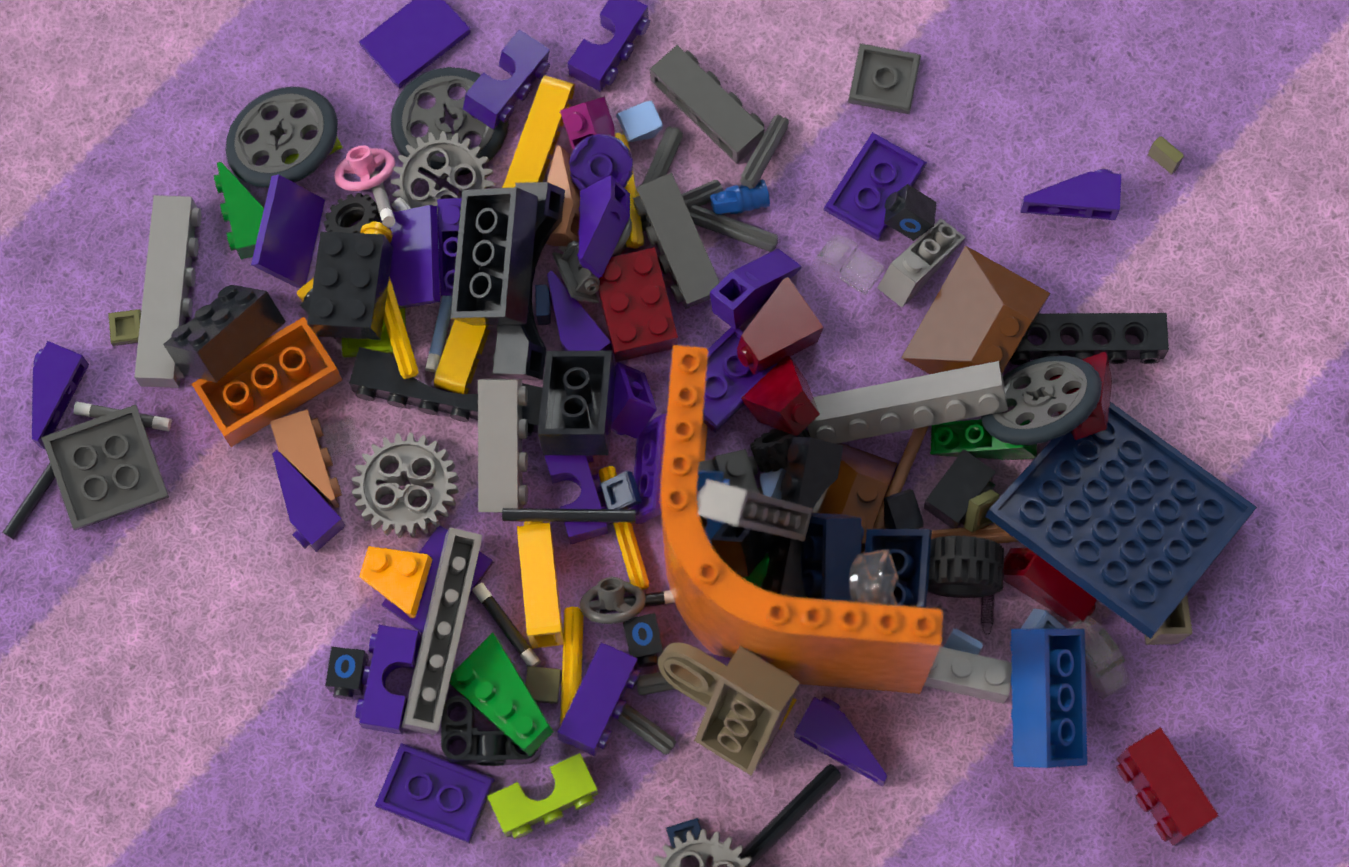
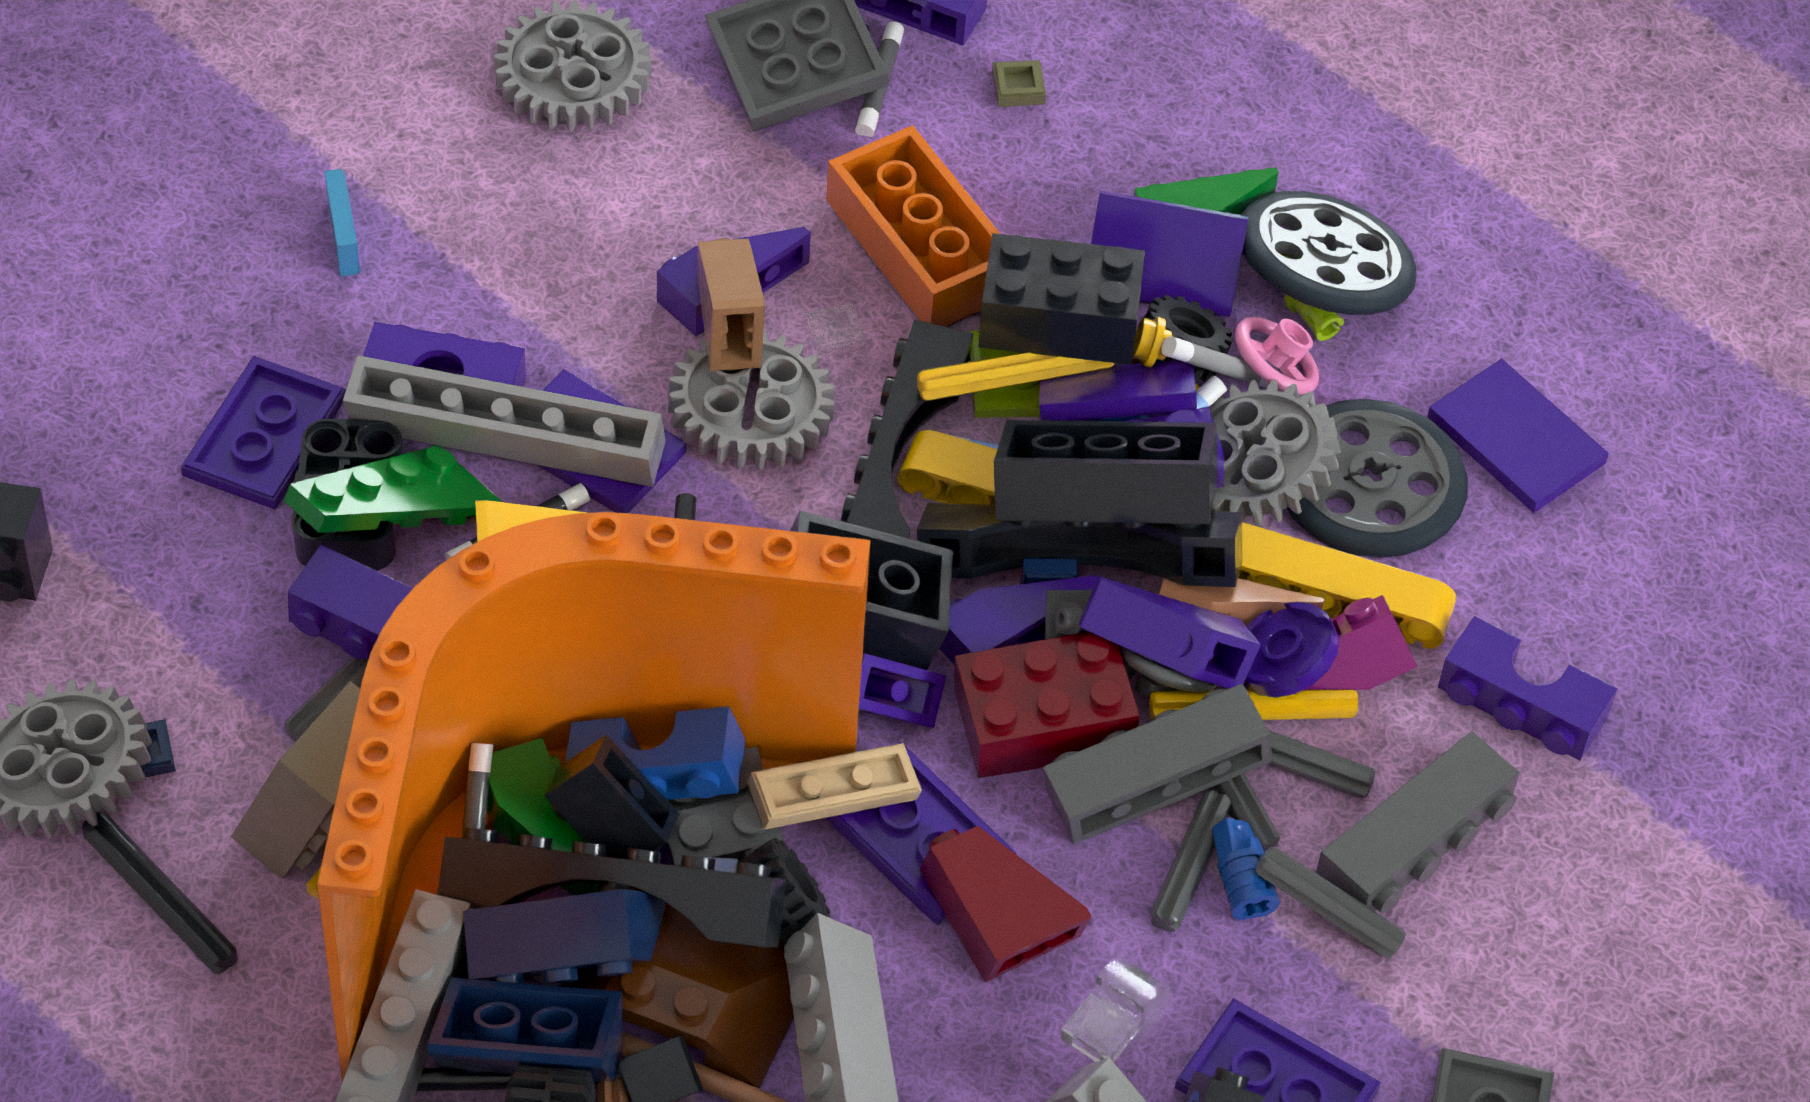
camera: 85 degrees right, 20 degrees down
(91, 602) = (572, 65): none -> light grey gear
(166, 287) = (1073, 120): light grey brick -> none
(224, 332) = (993, 160): black brick -> none
(261, 757) = (342, 222): none -> dark azure tile
(299, 444) = (817, 274): nougat slope -> none
(346, 672) = (461, 312): black brick -> none
(349, 490) = (730, 304): none -> medium nougat slope
(397, 576) = (605, 374): light orange wing -> none
(495, 99) = (1402, 522): dark purple arch -> none
(500, 444) = (851, 486): light grey brick -> none
(543, 684) = (414, 561): olive tile -> none
(572, 788) = (247, 591): lime arch -> none
(640, 122) = (1378, 727): light blue slope -> none
(718, 430) = (833, 786): none -> tan tile
(750, 287) = (1075, 855): dark purple slope -> none
(753, 510) = (609, 711): light grey brick -> none
(783, 399) = (870, 896): dark red slope -> none
(834, 735) = (269, 964): dark purple slope -> none
(873, 578) = (506, 960): clear brick -> none

